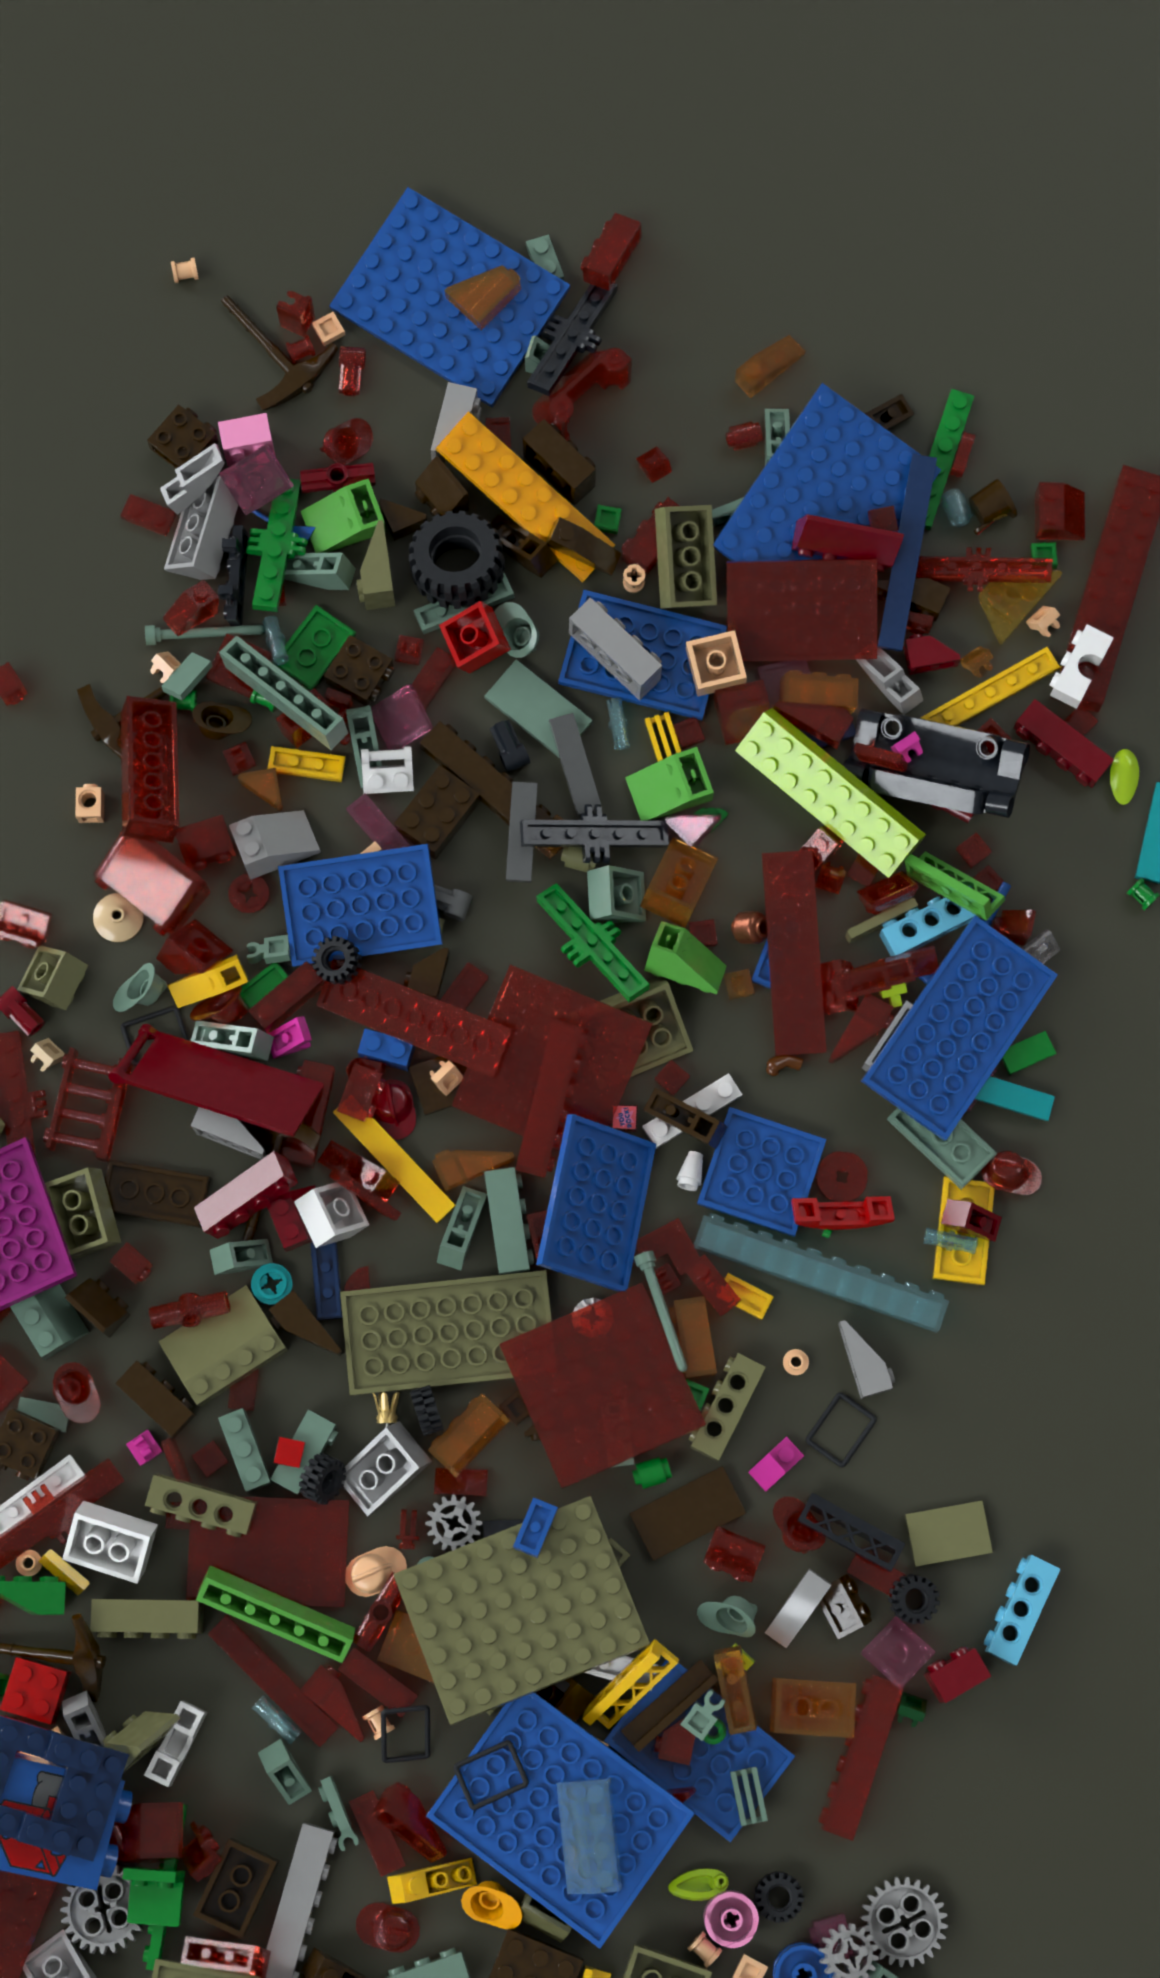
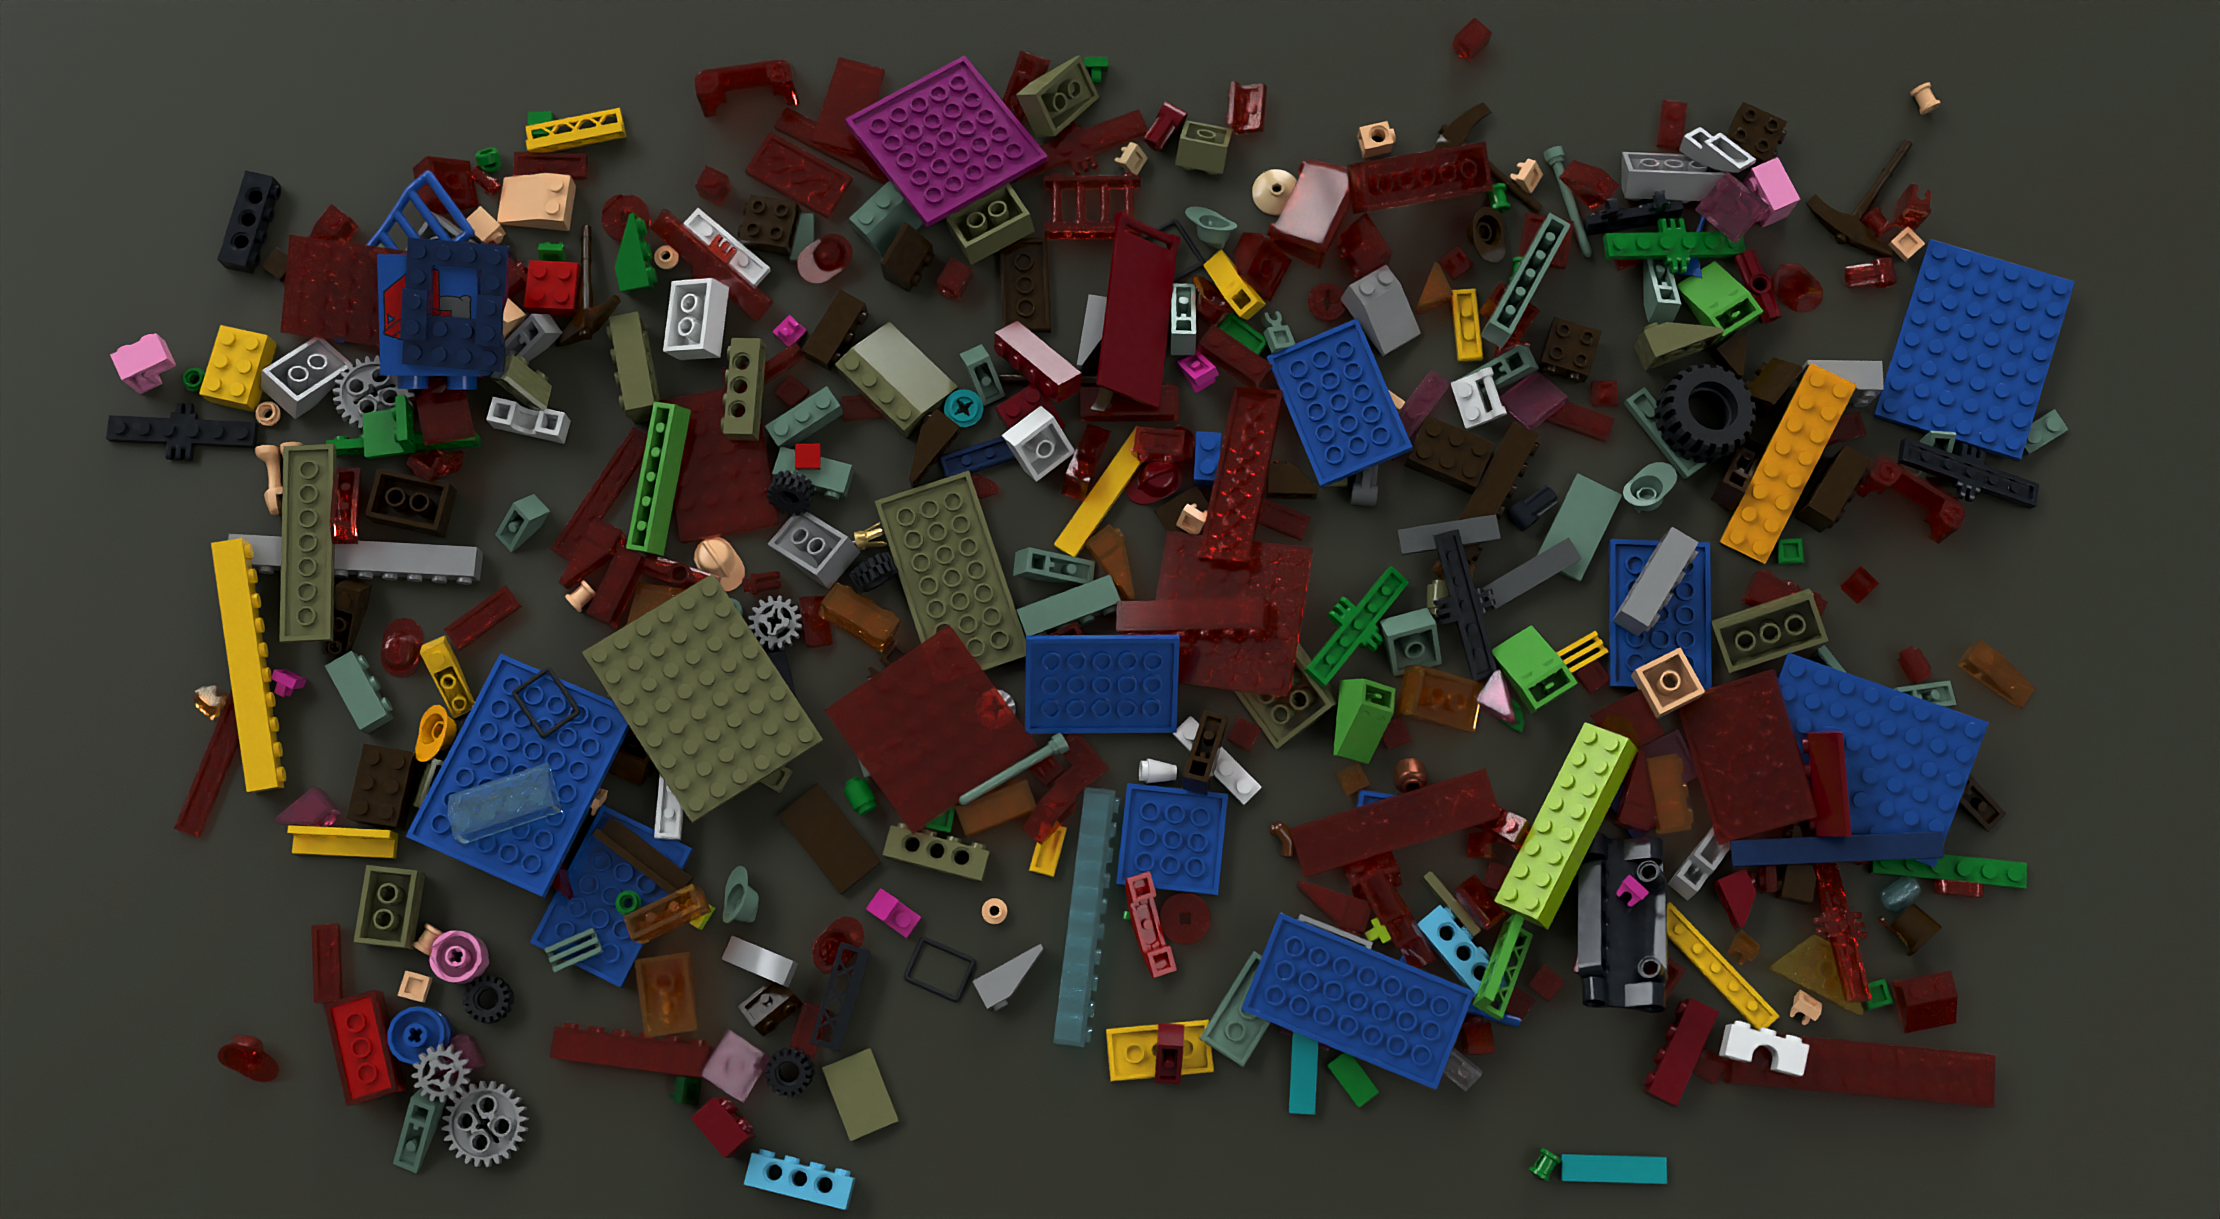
camera: 80 degrees right, 0 degrees up
(64, 1571) = (663, 287): yellow tile -> none
(187, 676) = (1521, 194): sand green tile -> none
(189, 1310) = (922, 340): clear red piece -> none
(275, 640) = (1579, 267): clear light blue pin -> none
(276, 1720) = (567, 505): clear light blue pin -> none
(314, 647) = (1582, 303): green tile -> none
(324, 953) = (1282, 403): black tyre -> none
(338, 699) = (1536, 340): clear red tile -> none
(338, 1814) = (495, 578): sand green plate -> none
(364, 1194) = (1064, 461): clear red tile -> none
(384, 1734) = (593, 614): black piece -> none
(407, 1818) = (501, 636): clear red slope -> none
(474, 637) = (1632, 448): red brick -> none
(484, 294) = (1984, 378): clear orange slope -> none
(535, 1527) = (779, 691): blue plate -> none
(582, 546) = (1752, 530): dark brown slope -> none
(611, 251) = (2068, 492): clear red brick -> none
(618, 723) = (1583, 606): clear light blue pin -> none
(625, 1118) = (1194, 698): tile -> none
(627, 580) = (1736, 582): light nougat bush -> none
(627, 1680) = (658, 811): yellow fence -> none
(675, 1744) = (611, 871): clear red slope -> none
(699, 1884) = (487, 922): lime arm -> none
(701, 1717) = (632, 885): sand green plate -> none
(733, 1554) = (797, 889): clear red bracket -> none
(880, 757) = (1614, 866): clear red tile -> none
(883, 518) = (1863, 818): clear red plate -> none
(950, 1240) = (1144, 1037): clear light blue pin -> none
(1012, 1174) = (1226, 1088): clear red piece -> none
(1124, 776) = (1663, 1122): lime arm -> none

